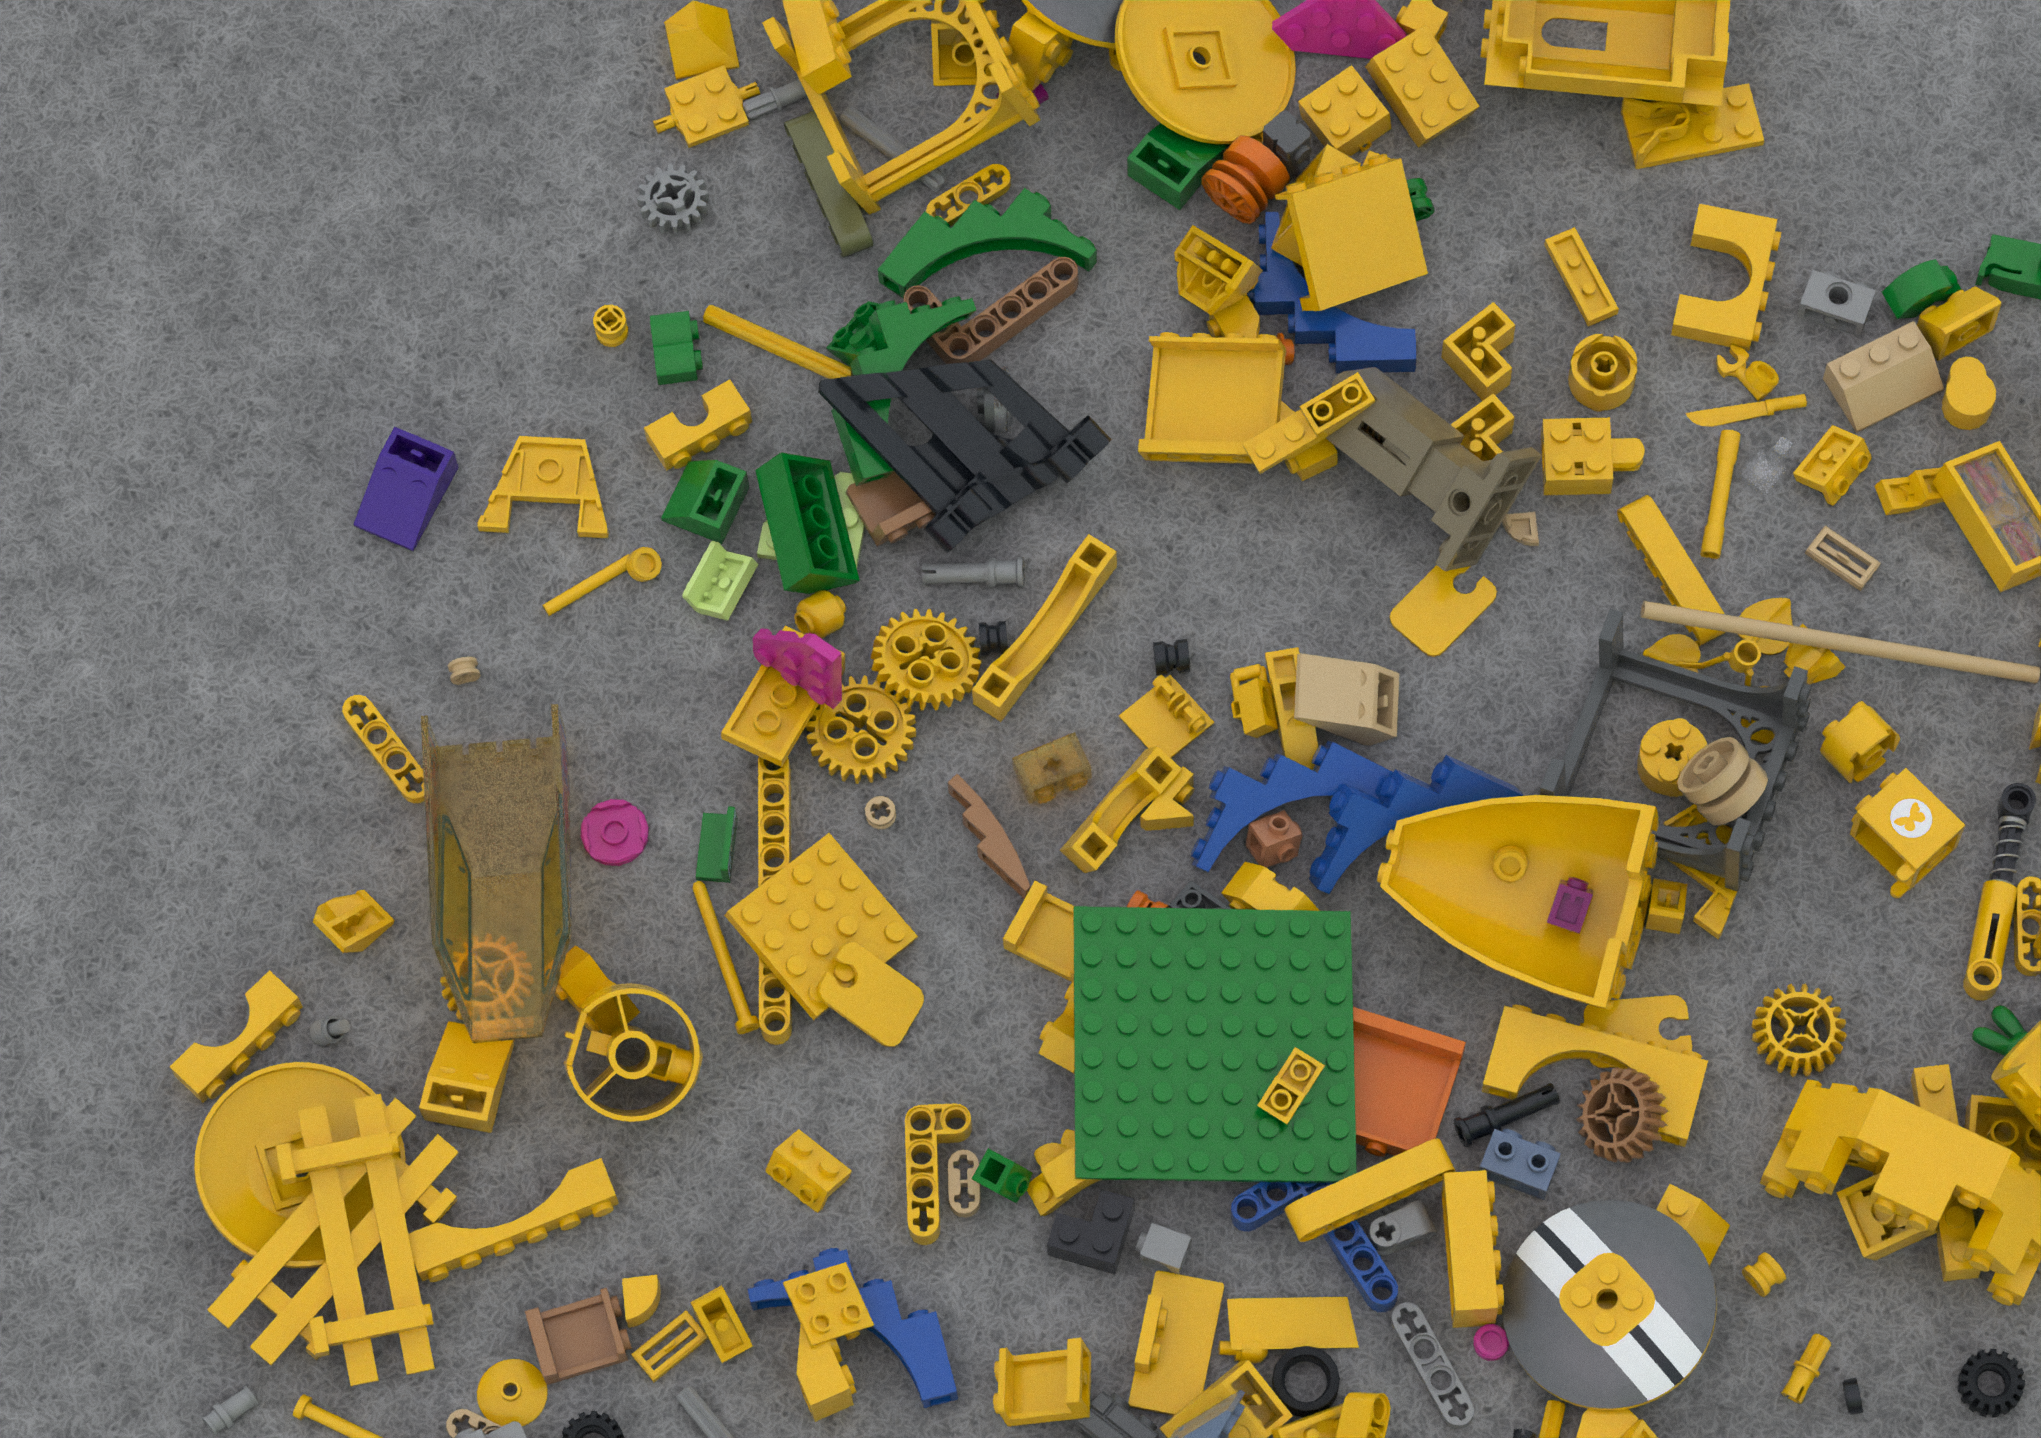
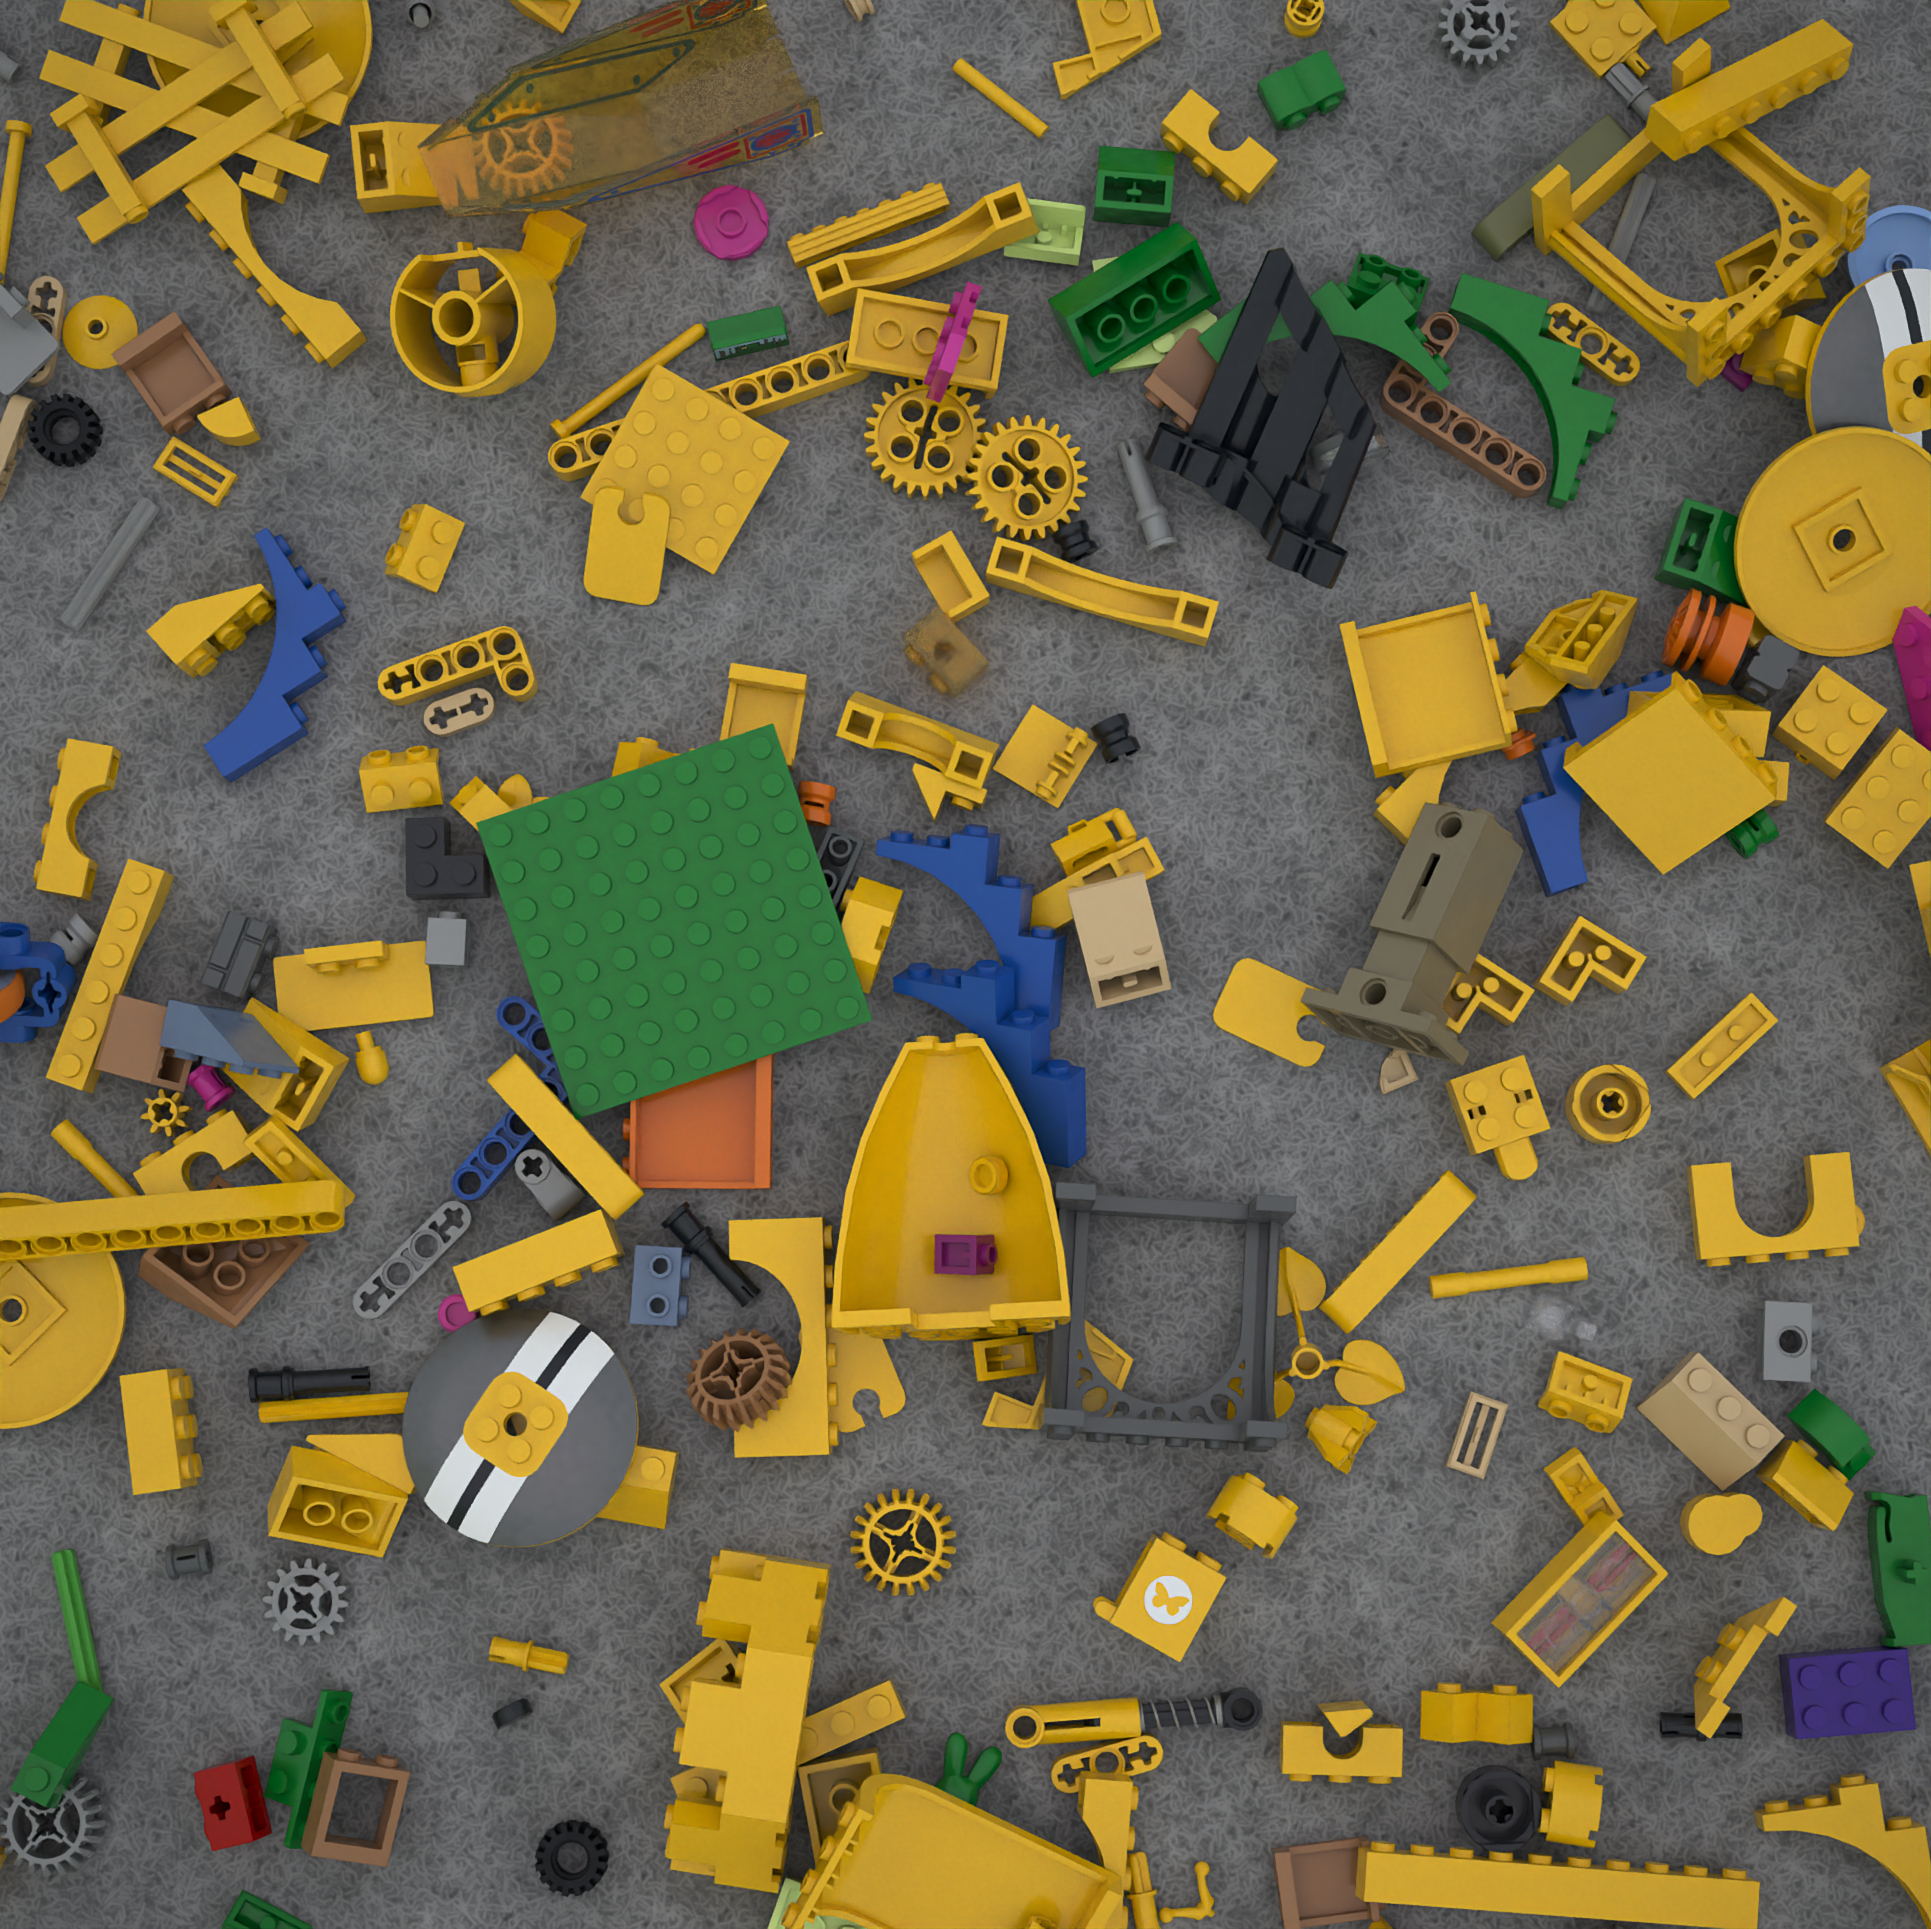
camera: 70 degrees right, 15 degrees up
(643, 564) = (1040, 146): yellow tile -> none
(658, 721) = (868, 224): none -> yellow piece
(706, 688) = (984, 227): none -> yellow arch
(721, 1324) = (226, 514): yellow slope -> none
(775, 343) = (1344, 195): yellow axle -> none
(820, 614) = (1041, 350): yellow head -> none
(828, 1304) = (260, 612): yellow hinge -> none
(877, 803) = (851, 485): tan bush -> none
(988, 744) = (950, 577): none -> yellow panel
(995, 845) = (837, 623): medium nougat slope -> none
(1002, 1176) = (471, 748): green brick -> none
(1006, 1248) = (401, 779): none -> yellow bracket
(1043, 1385) = (260, 863): yellow panel -> none
(1273, 839) = (938, 914): nougat brick -> none
(1291, 1085) = (648, 1017): yellow slope -> none
(1292, 1322) = (412, 1099): yellow sticker -> none
(1310, 424) = (1417, 797): yellow slope -> none
(1312, 1355) = (329, 1115): black tyre -> none
(1665, 739) = (1194, 1315): yellow brick -> none
(1722, 781) = (1144, 1379): tan wheel -> none
(1738, 369) = (1665, 1258): yellow bar -> none
(1742, 412) = (1615, 1269): yellow piece -> none
(1761, 376) = (1665, 1283): yellow tile -> none
(1764, 1274) = (616, 1581): yellow wheel -> none
(1840, 642) = (1359, 1461): tan piece -> none

